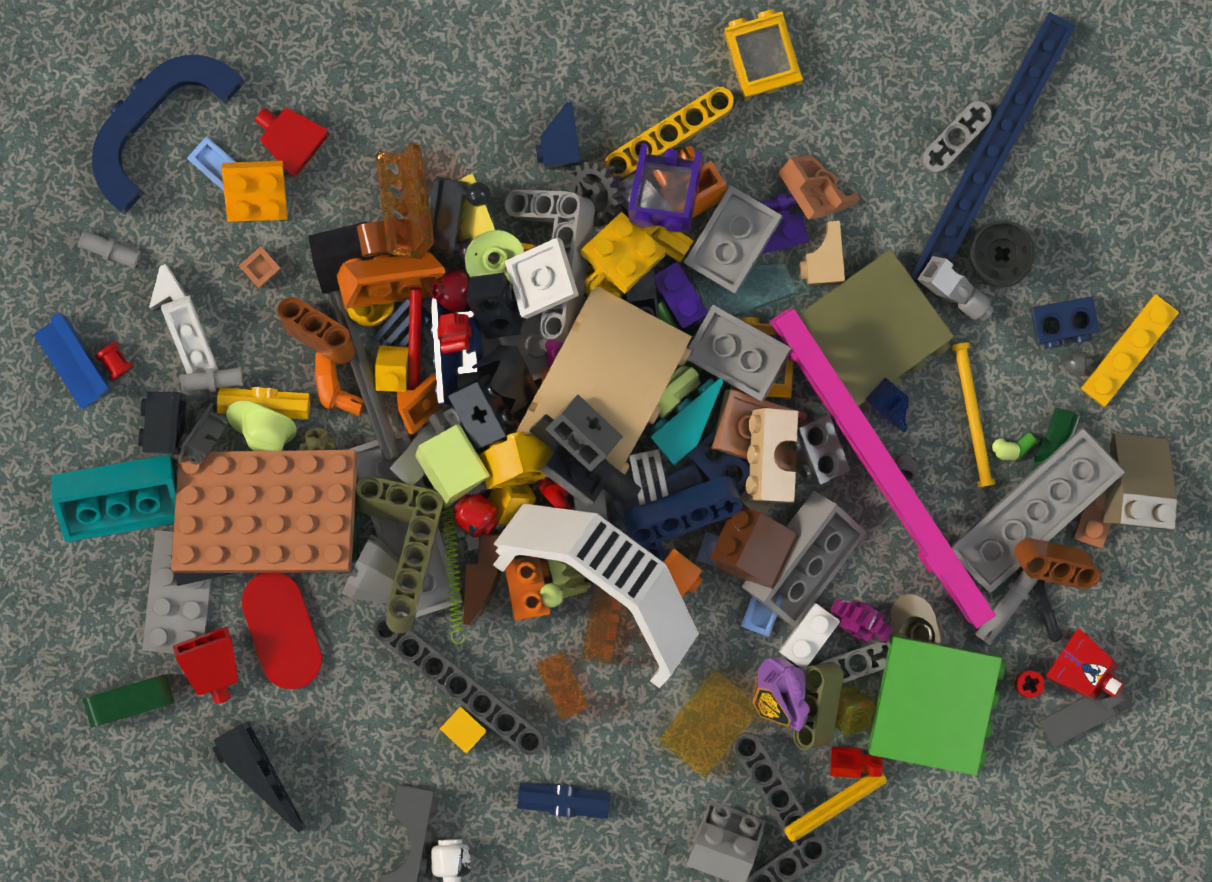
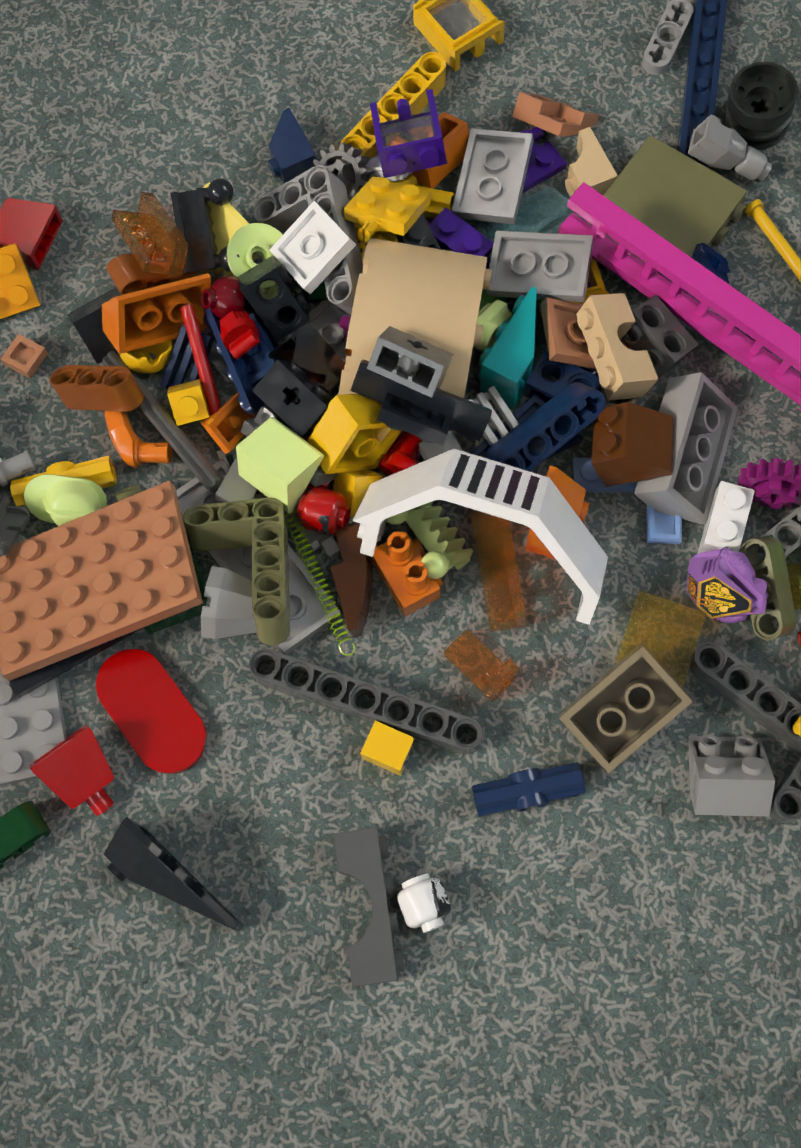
camera: 20 degrees left, 15 degrees down
(661, 765) = (625, 707): none -> dark tan brick

